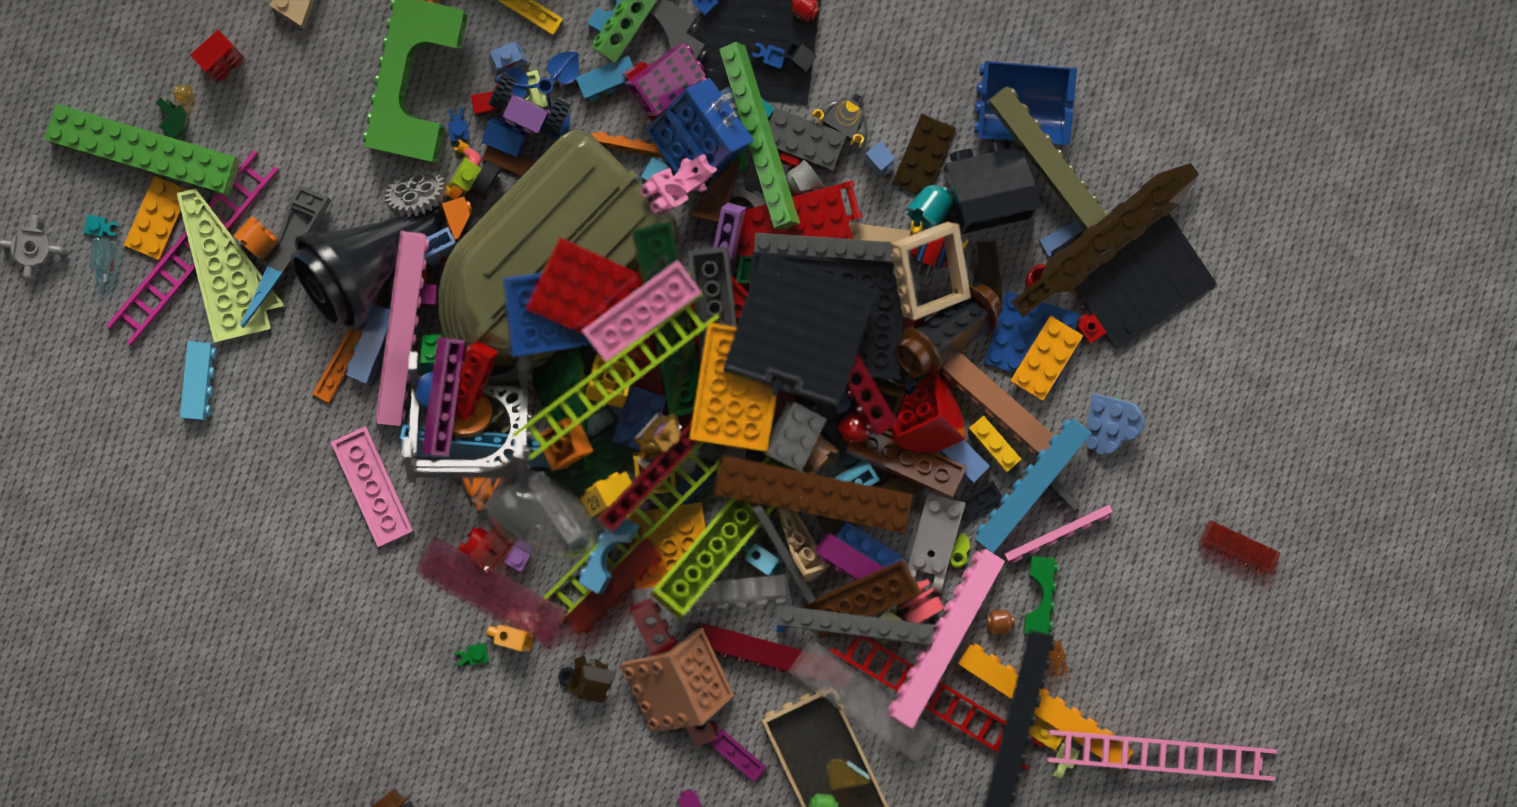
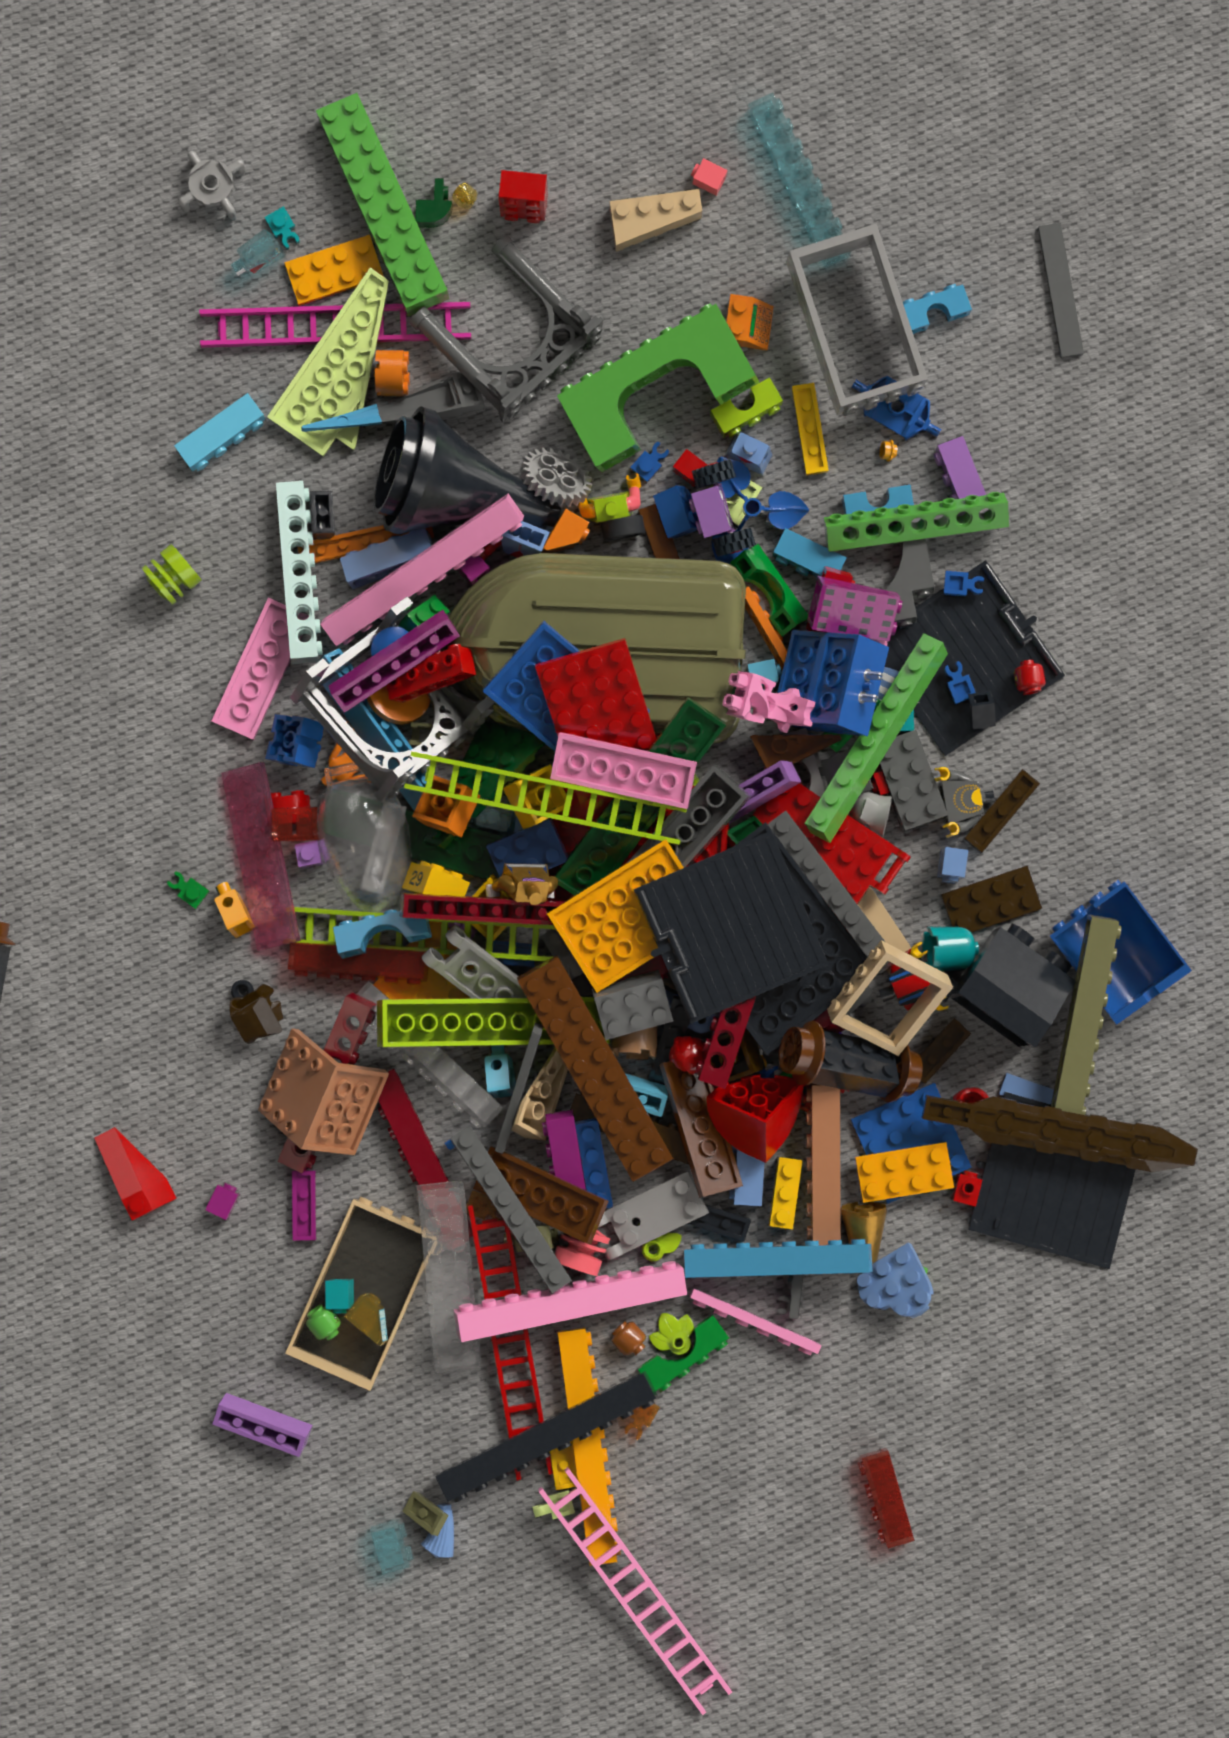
camera: 45 degrees right, 0 degrees up
(261, 490) = (171, 574): none -> lime wheel
(275, 372) = (287, 494): none -> light aqua brick
(307, 361) = (322, 514): none -> black brick
(327, 93) = (576, 322): none -> dark grey arch
(438, 504) = (295, 741): none -> blue brick
(476, 51) = (730, 419): none -> lime arch
(587, 117) = (757, 569): none -> green arch
(696, 515) = (485, 980): none -> light grey hinge
(814, 781) = (339, 1294): none -> teal brick
(836, 642) = (481, 1205): none -> clear orange plate
(873, 99) = (1001, 811): none -> dark brown plate
(1018, 591) = (671, 1331): none -> lime plate
(1056, 410) = (865, 1223): none -> pearl gold cone

